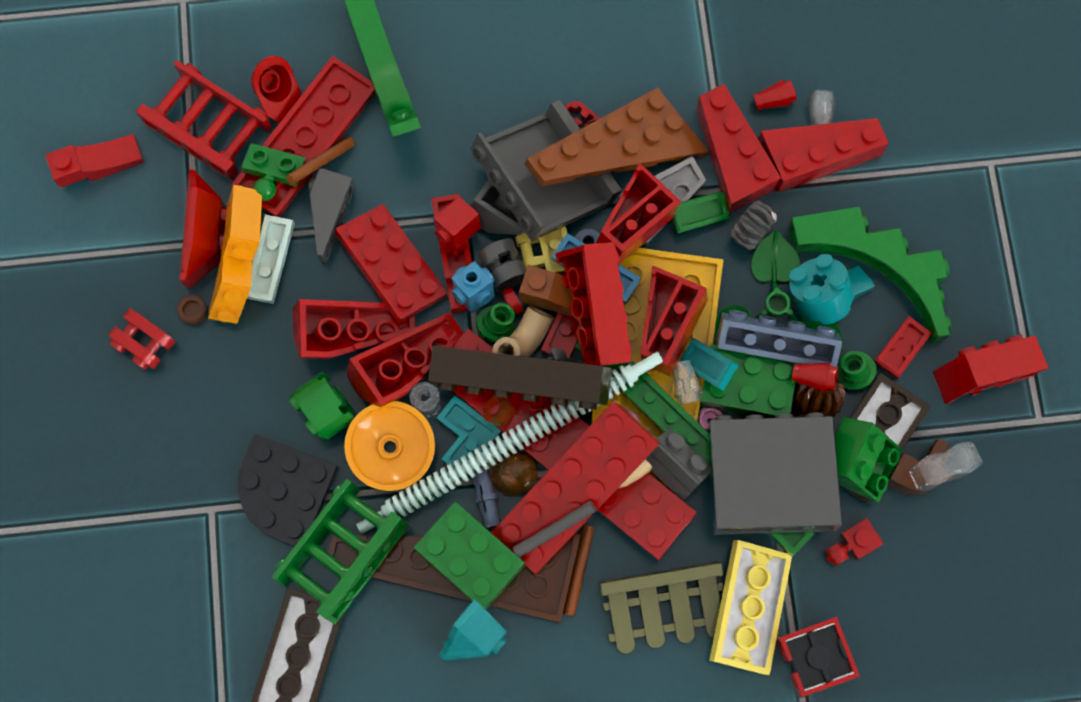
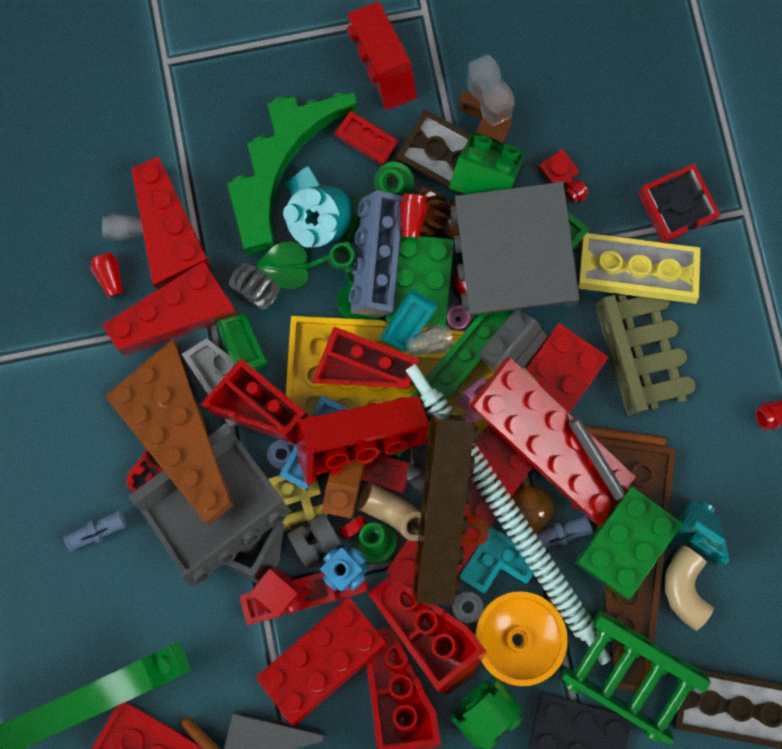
camera: 90 degrees left, 5 degrees up
(418, 611) = (681, 588): none -> tan cylinder
(532, 72) = (95, 531): none -> sand blue pin

